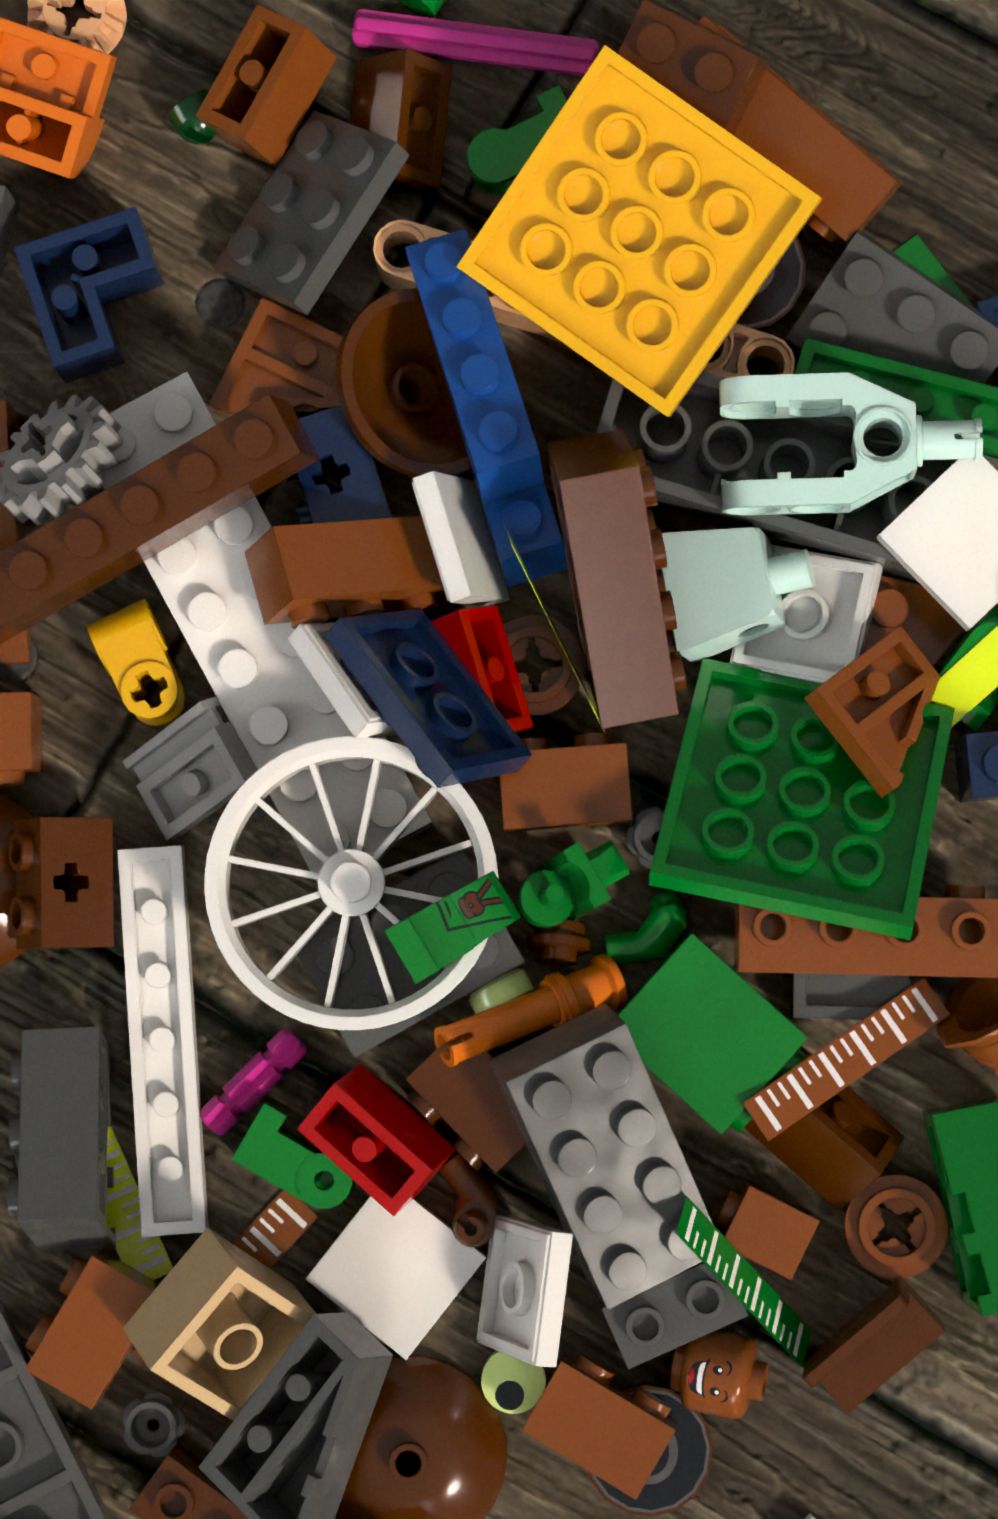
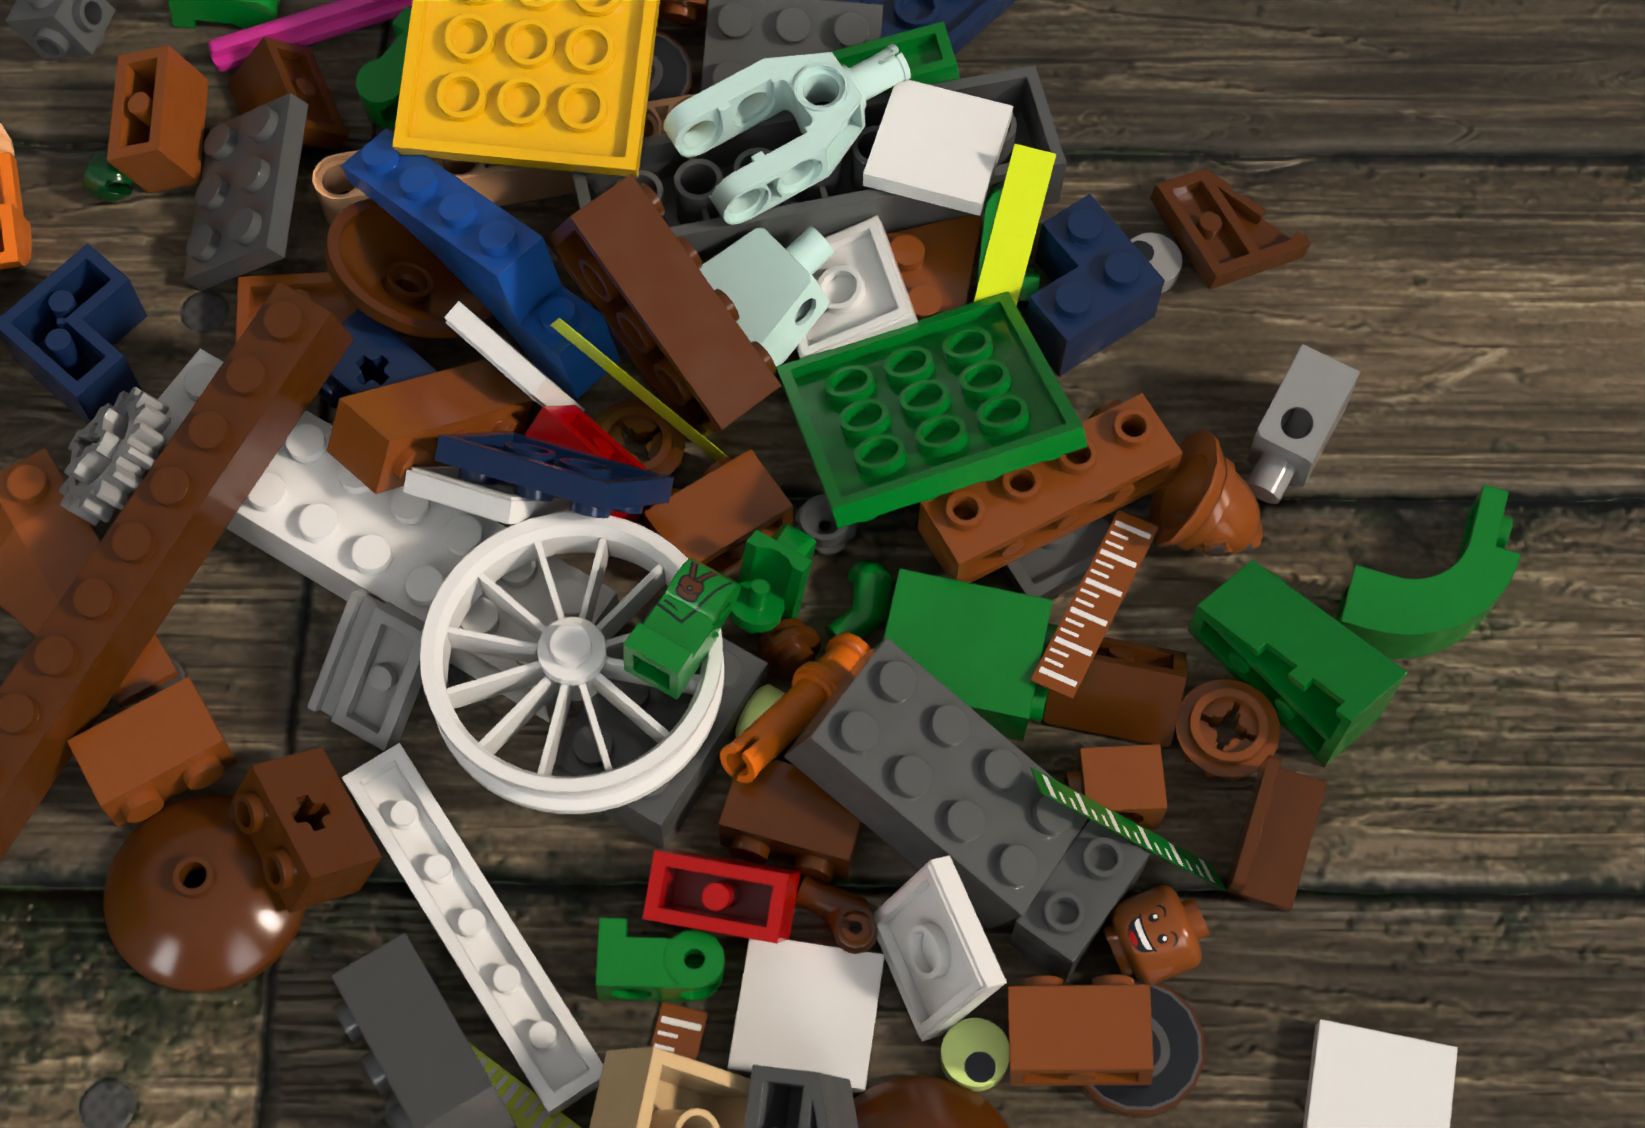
camera: 35 degrees left, 20 degrees down
(133, 656) = (279, 615): yellow piece -> none
(252, 1082) = (579, 920): dark pink axle -> none
(878, 706) = (944, 307): dark orange wing -> none

